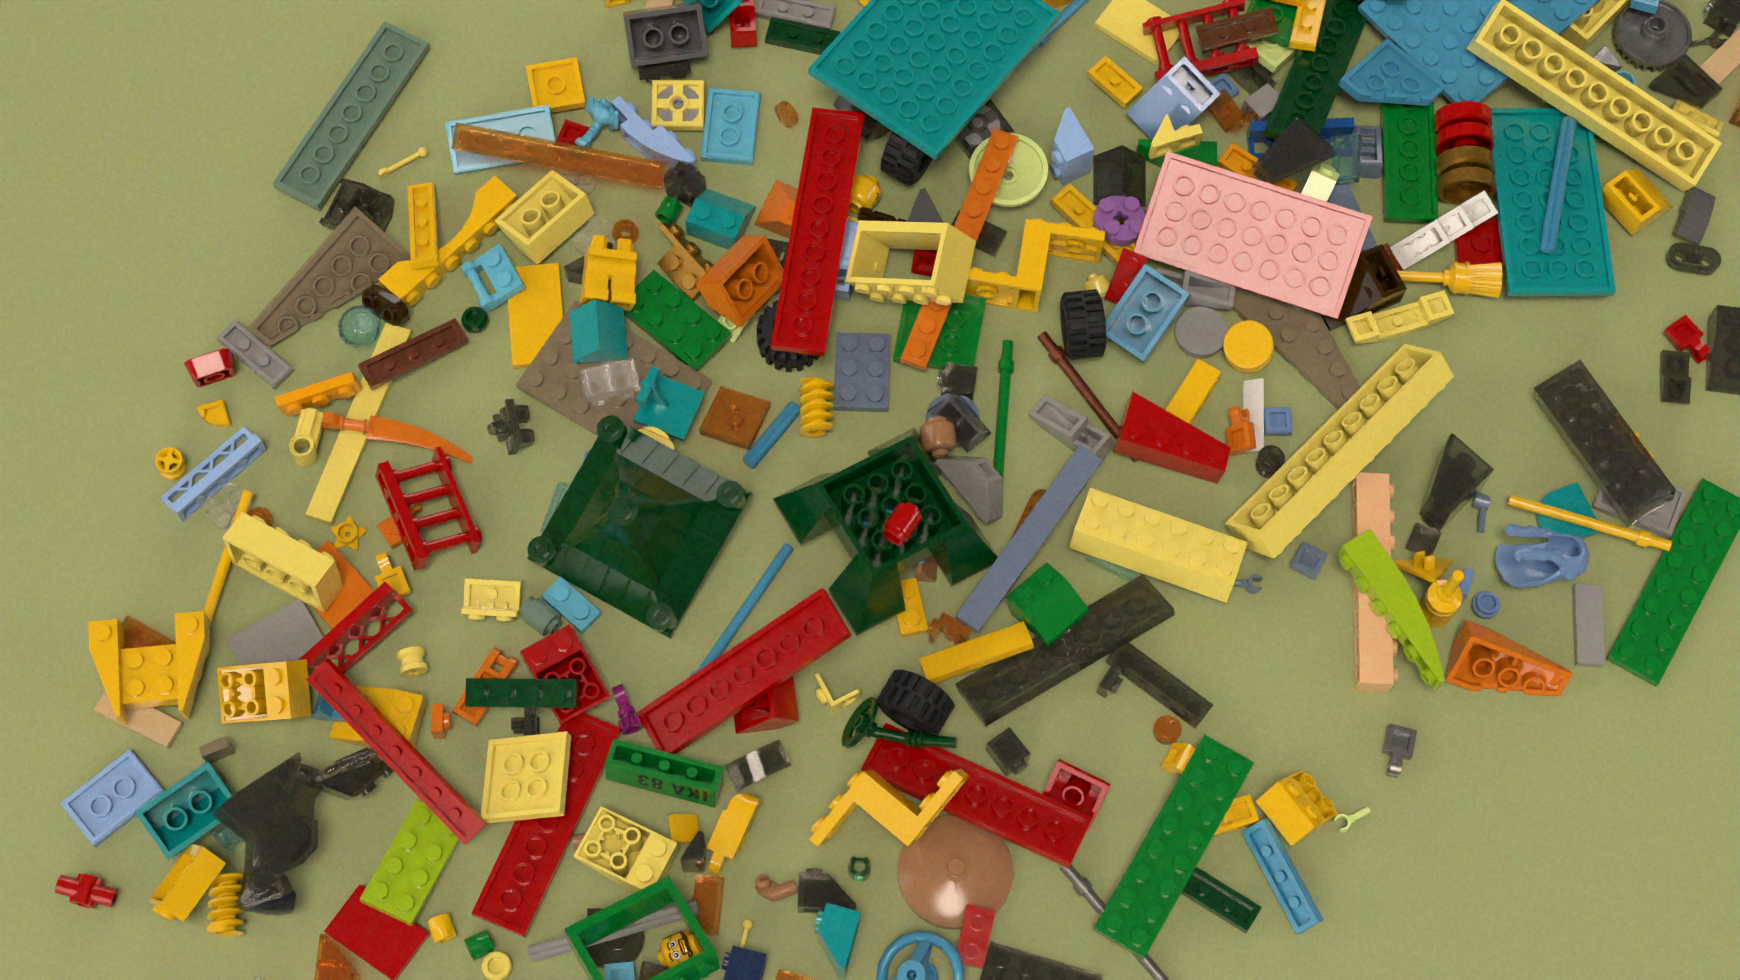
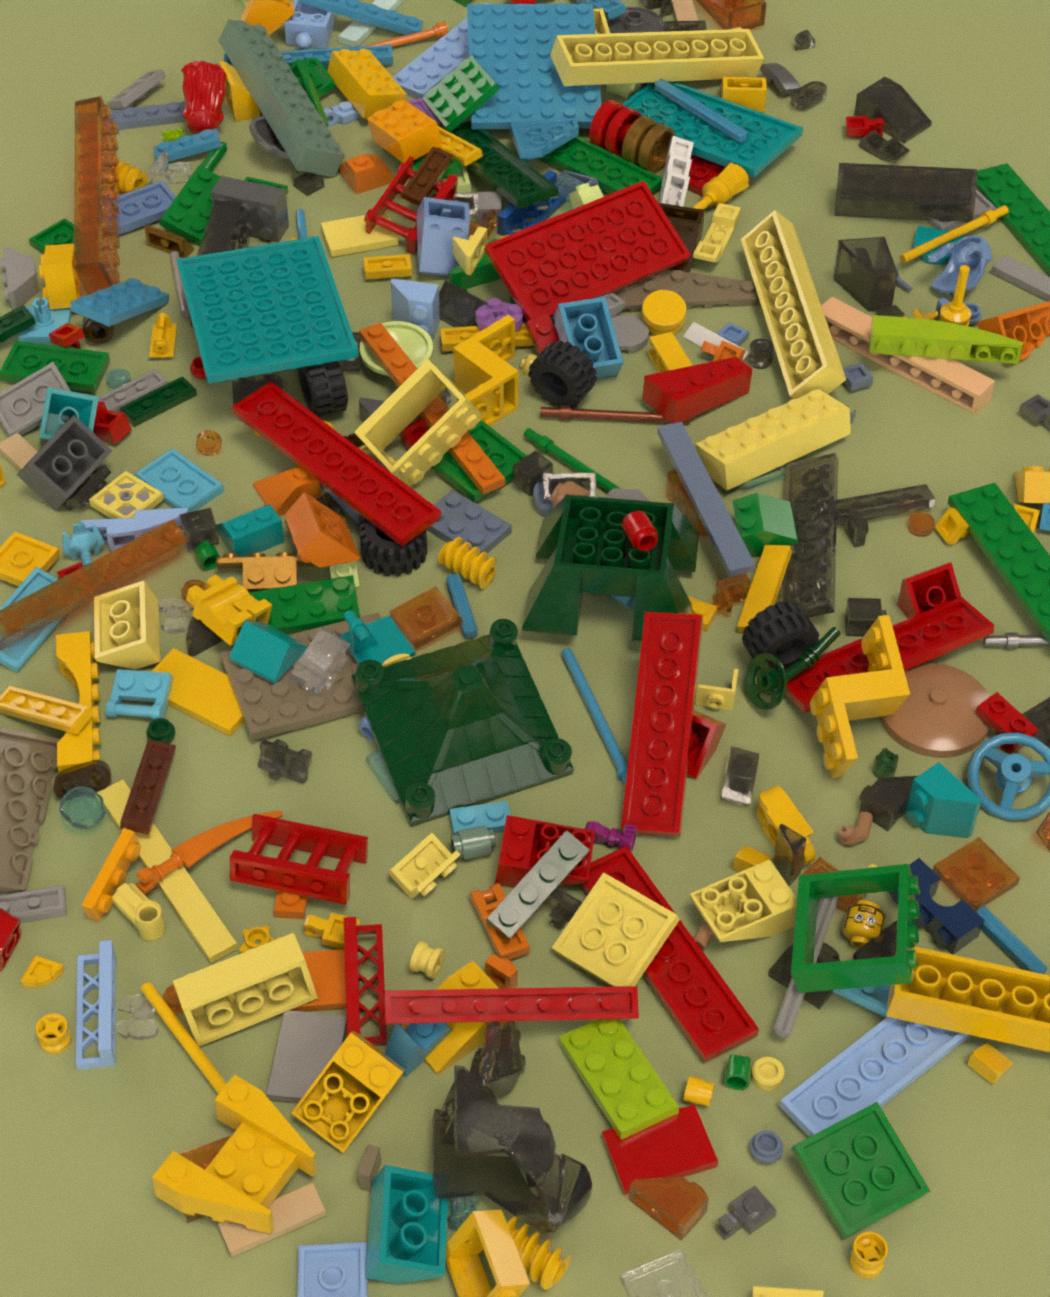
camera: 50 degrees left, 20 degrees down
(664, 773) = (695, 836): green brick -> none
(1070, 427) = (629, 437): light grey slope -> none
(1292, 152) = (553, 185): clear smoke slope -> none

